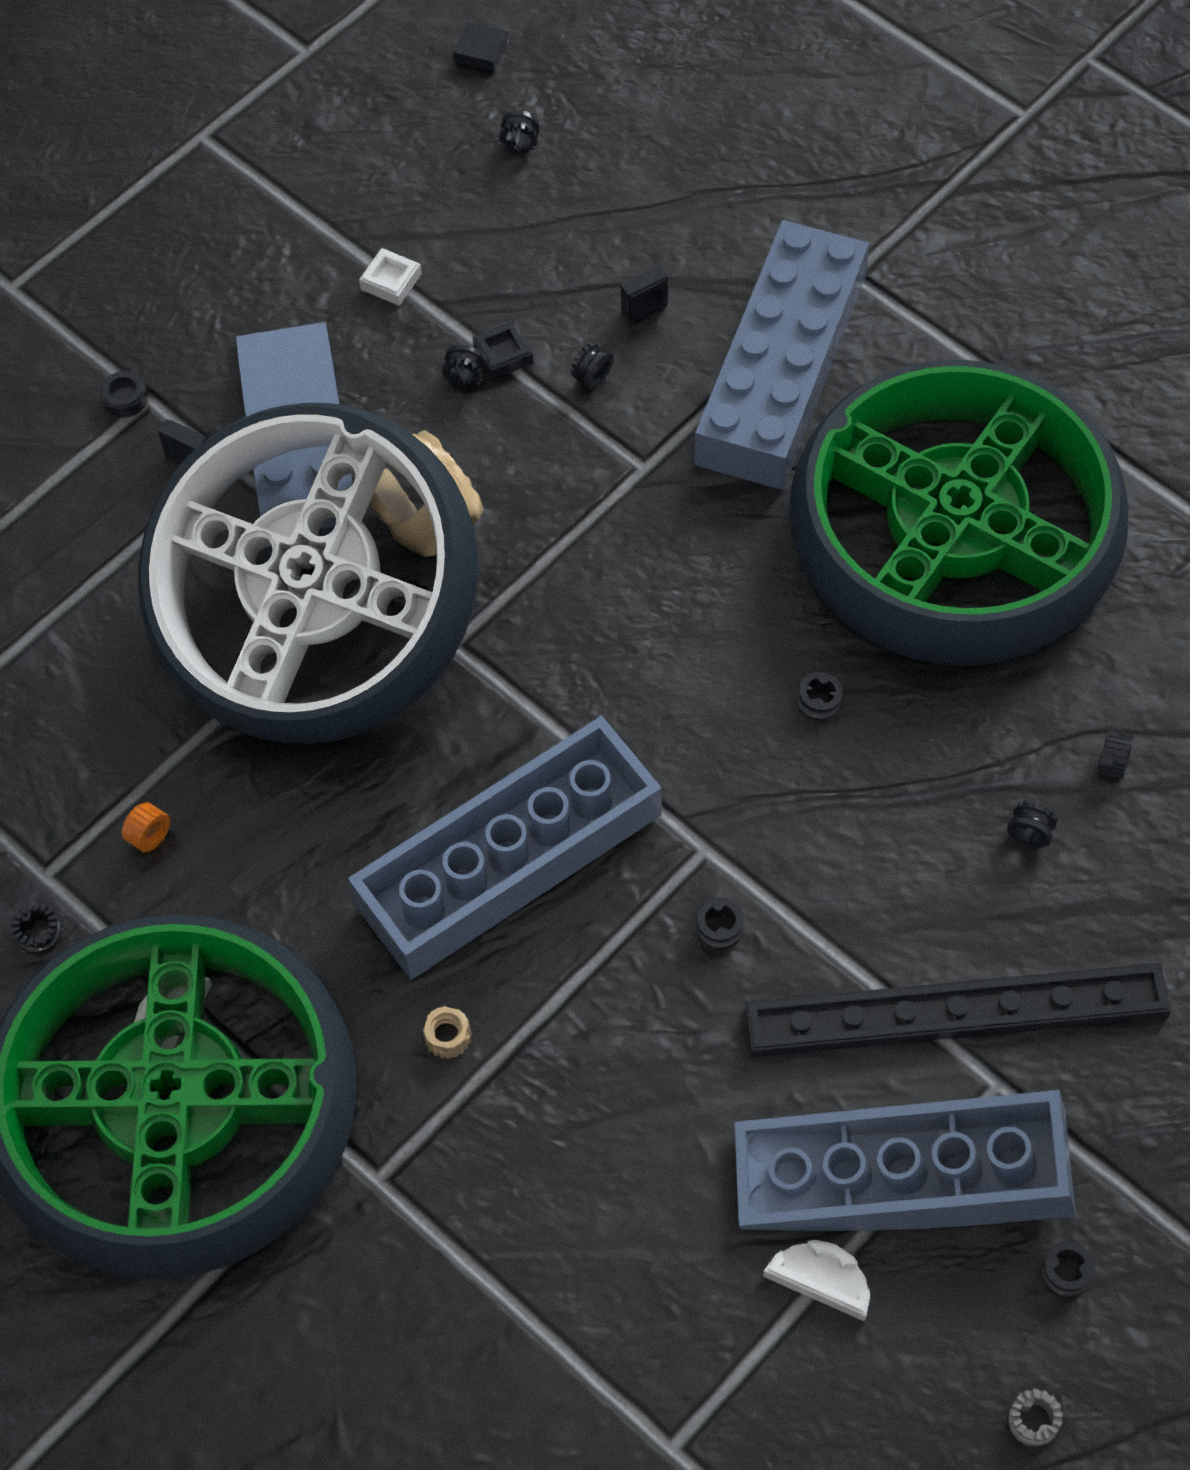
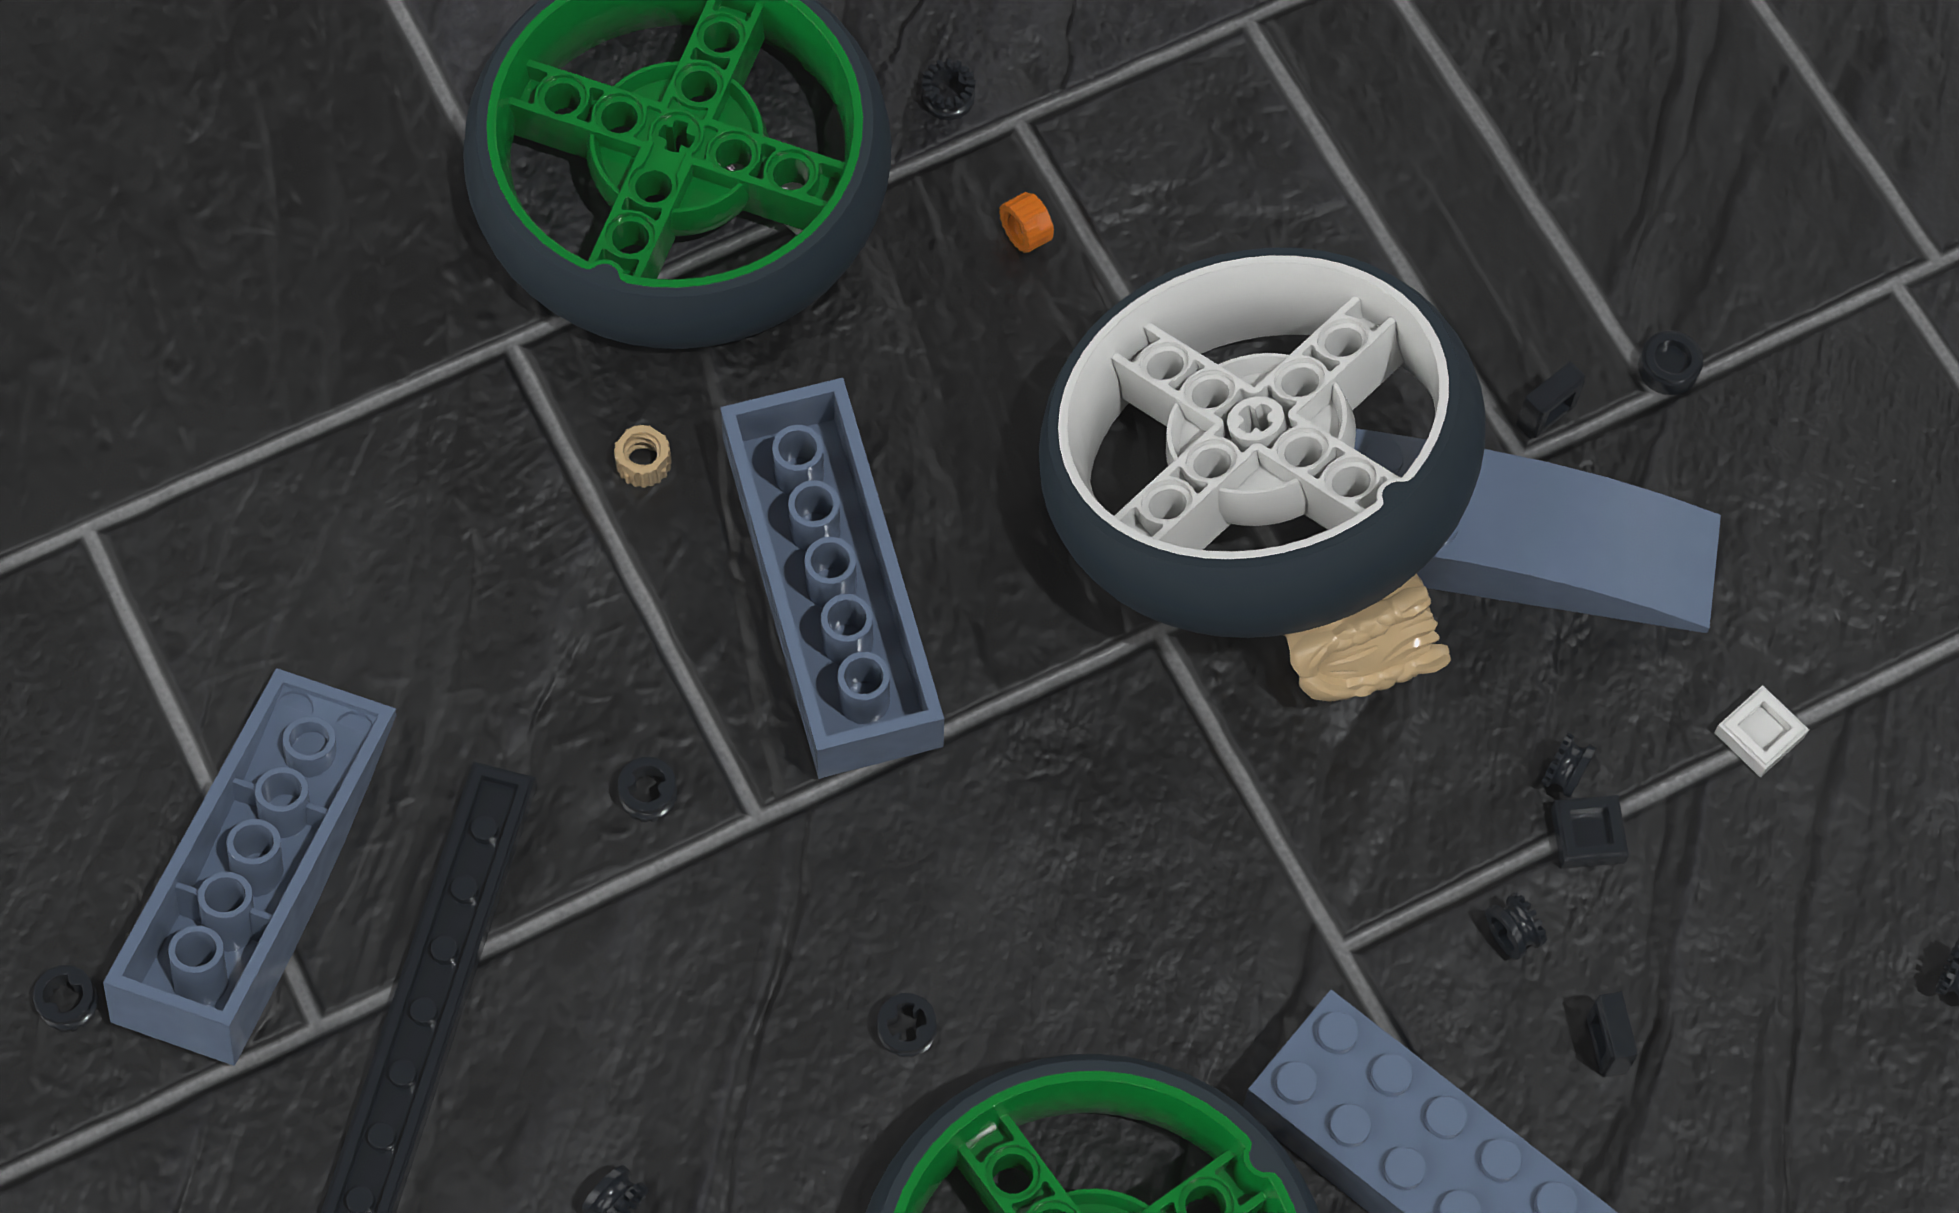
camera: 105 degrees right, 5 degrees up
(824, 1274) = (187, 742): white tile -> none

